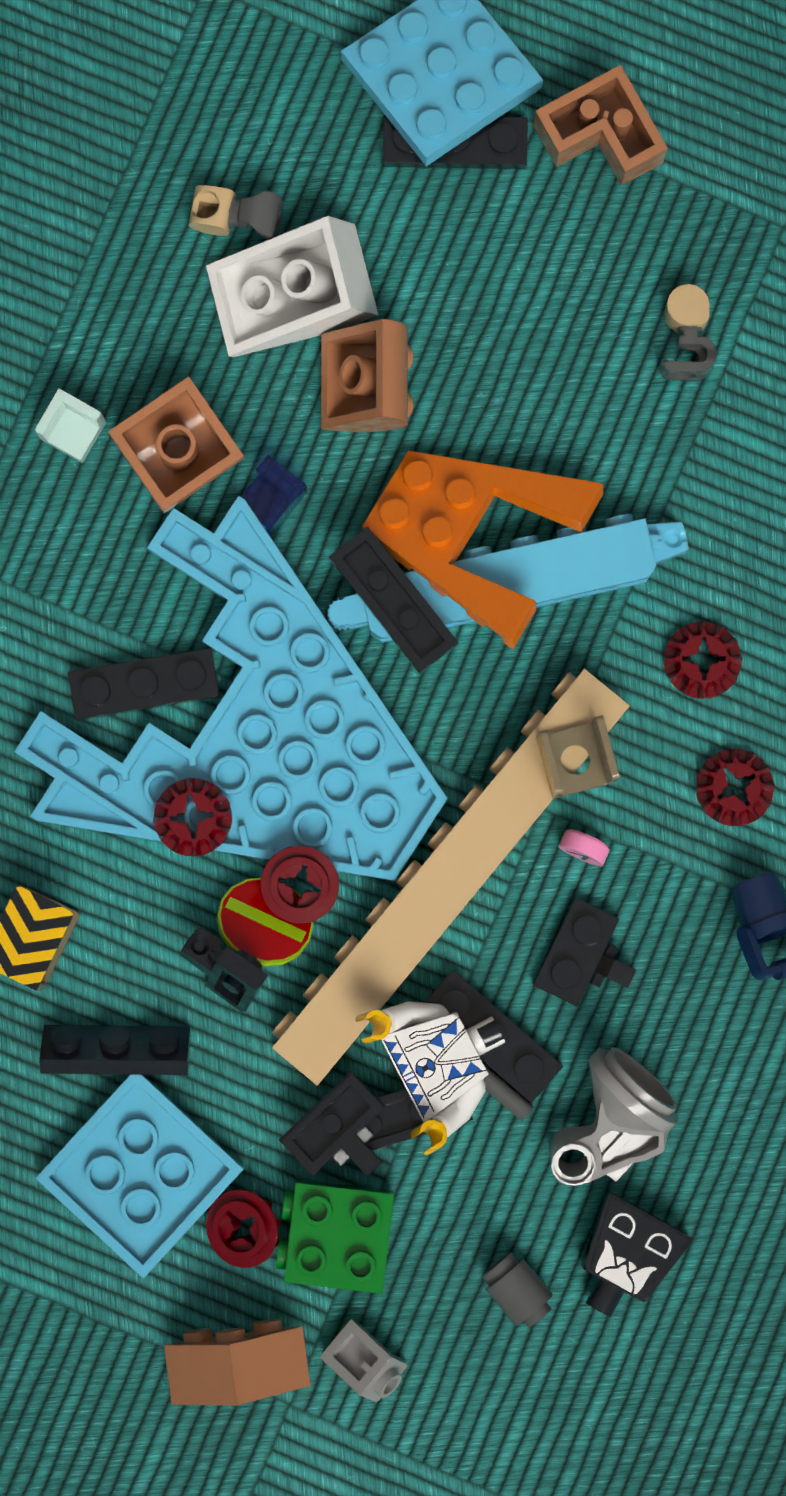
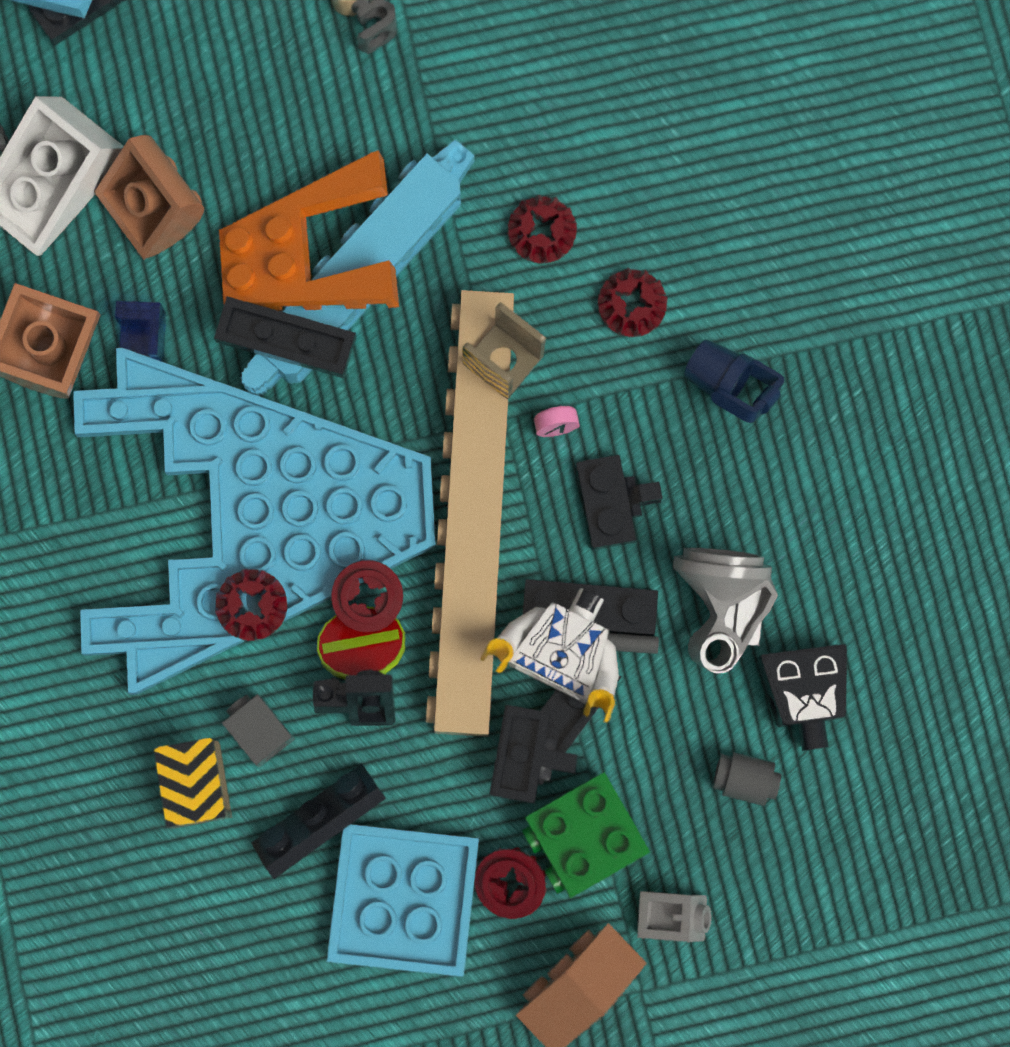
camera: 45 degrees left, 5 degrees down
(120, 930) = (257, 729): none -> dark grey brick
(143, 684) = (144, 537): black plate -> none

